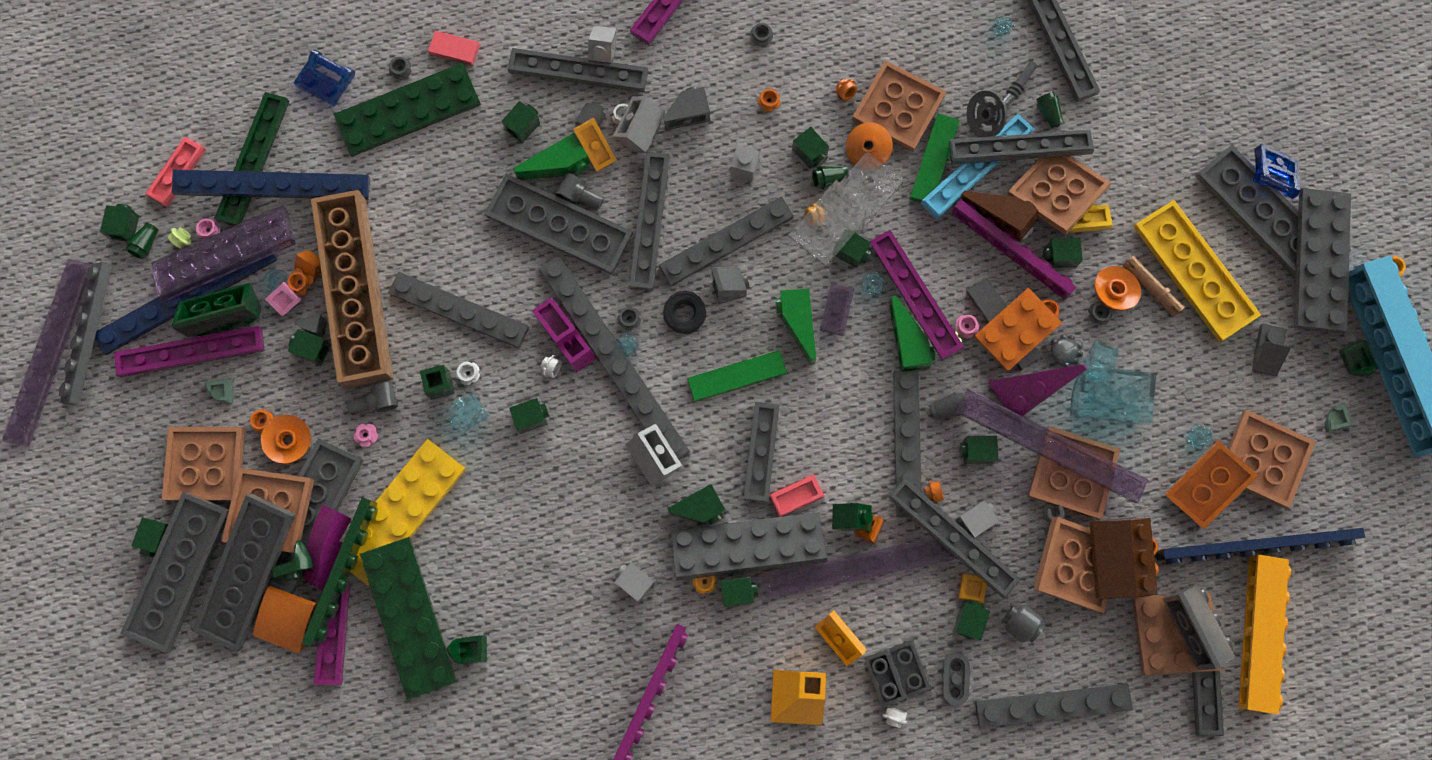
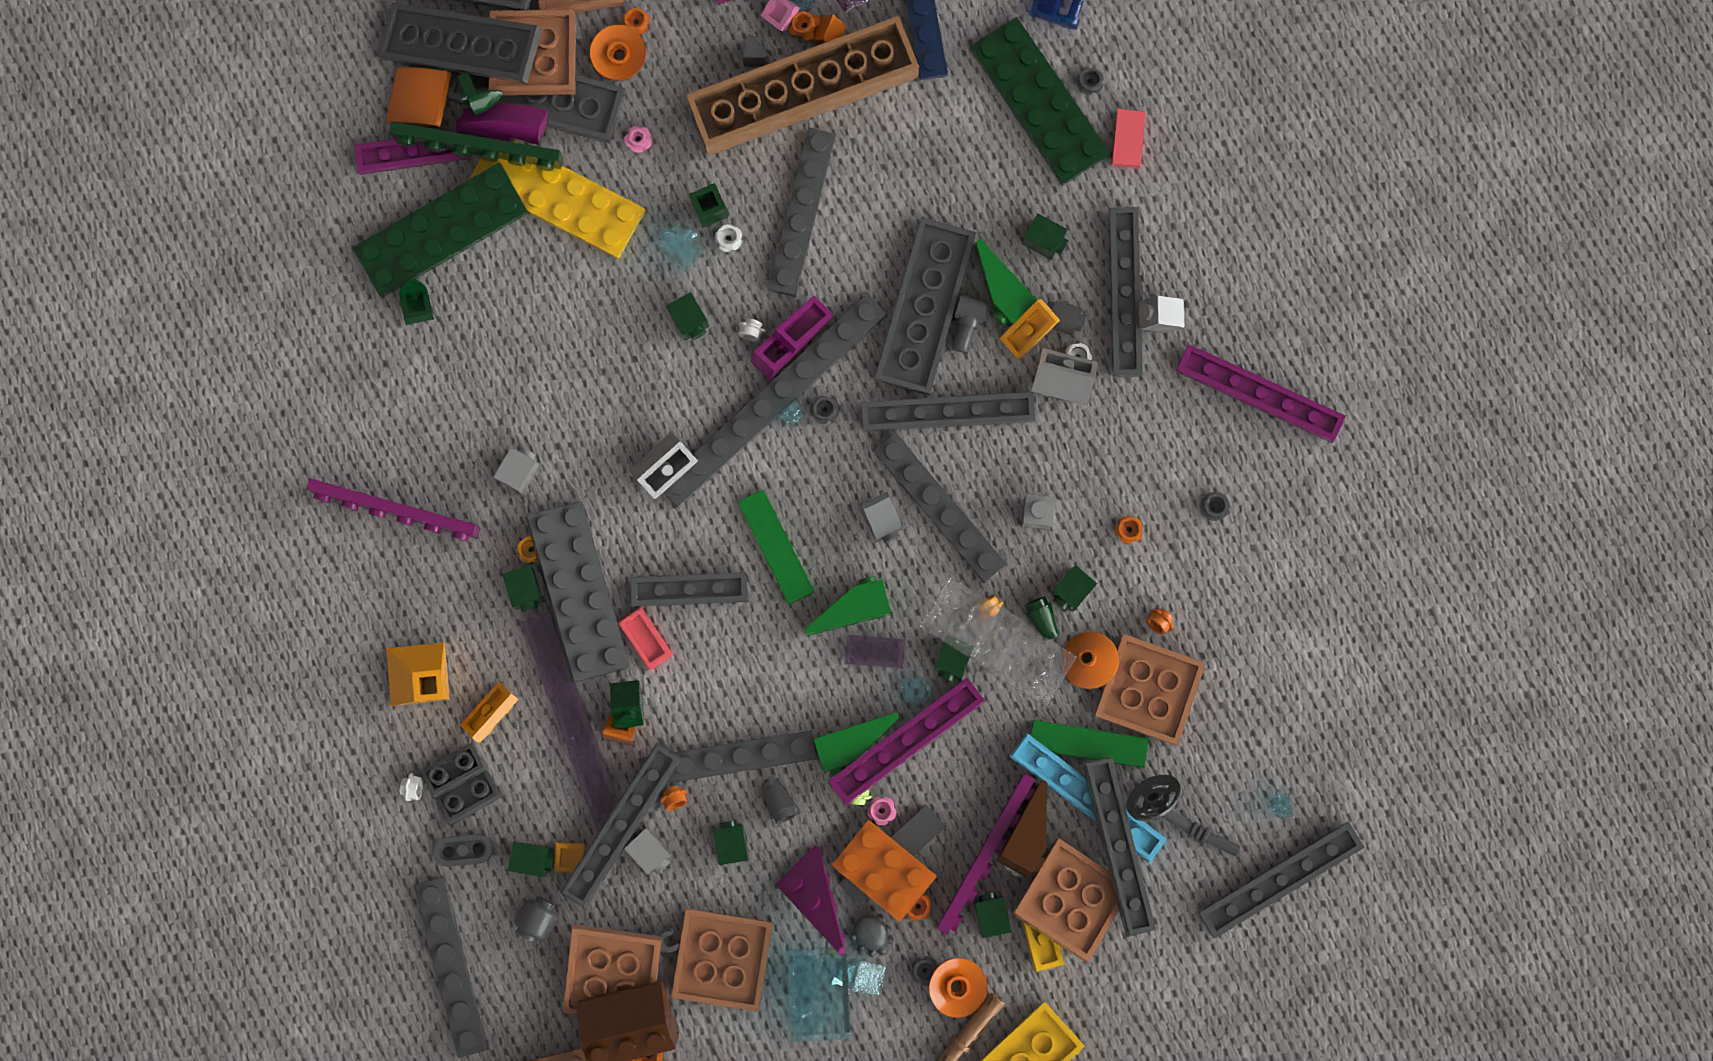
camera: 80 degrees right, 5 degrees up
(308, 347) = (727, 53): dark green brick -> none
(380, 398) = (680, 144): dark grey pin -> none
(676, 300) = (848, 489): black tyre -> none
(688, 109) = (1098, 433): dark grey slope -> none
(700, 507) = (612, 530): dark green slope -> none
(1050, 109) = (1180, 879): dark green cone -> none
(1052, 446) = (745, 926): clear purple plate -> none

